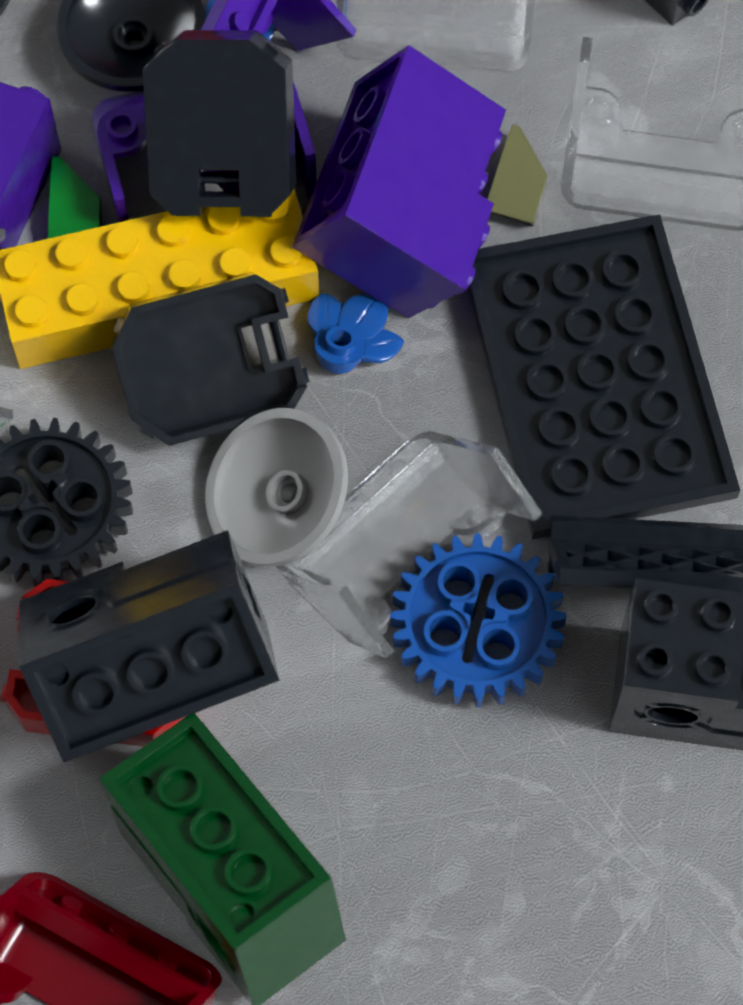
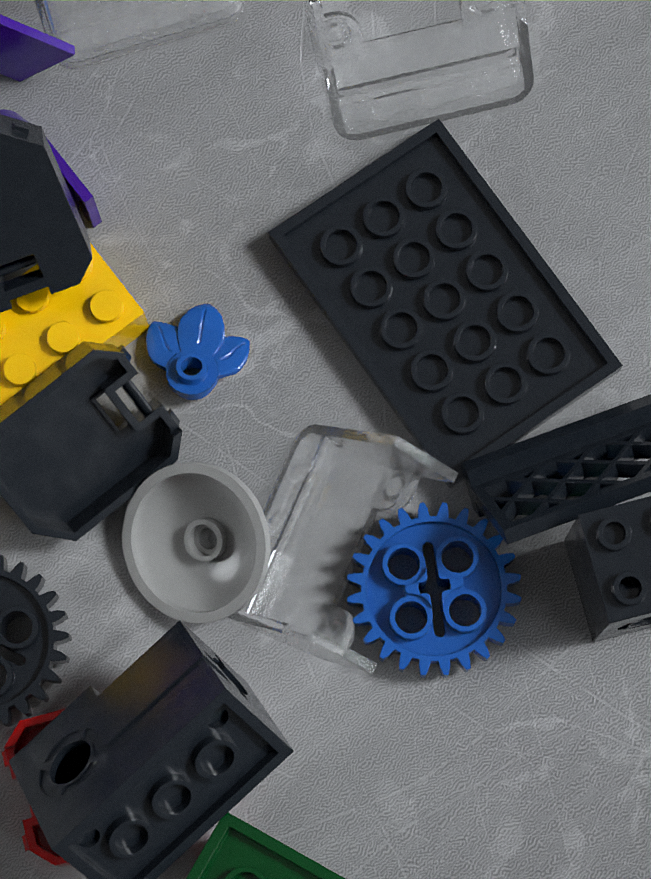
camera: 20 degrees left, 10 degrees up
(404, 185) = (191, 192): dark purple piece -> none
(518, 180) = (290, 135): olive slope -> none

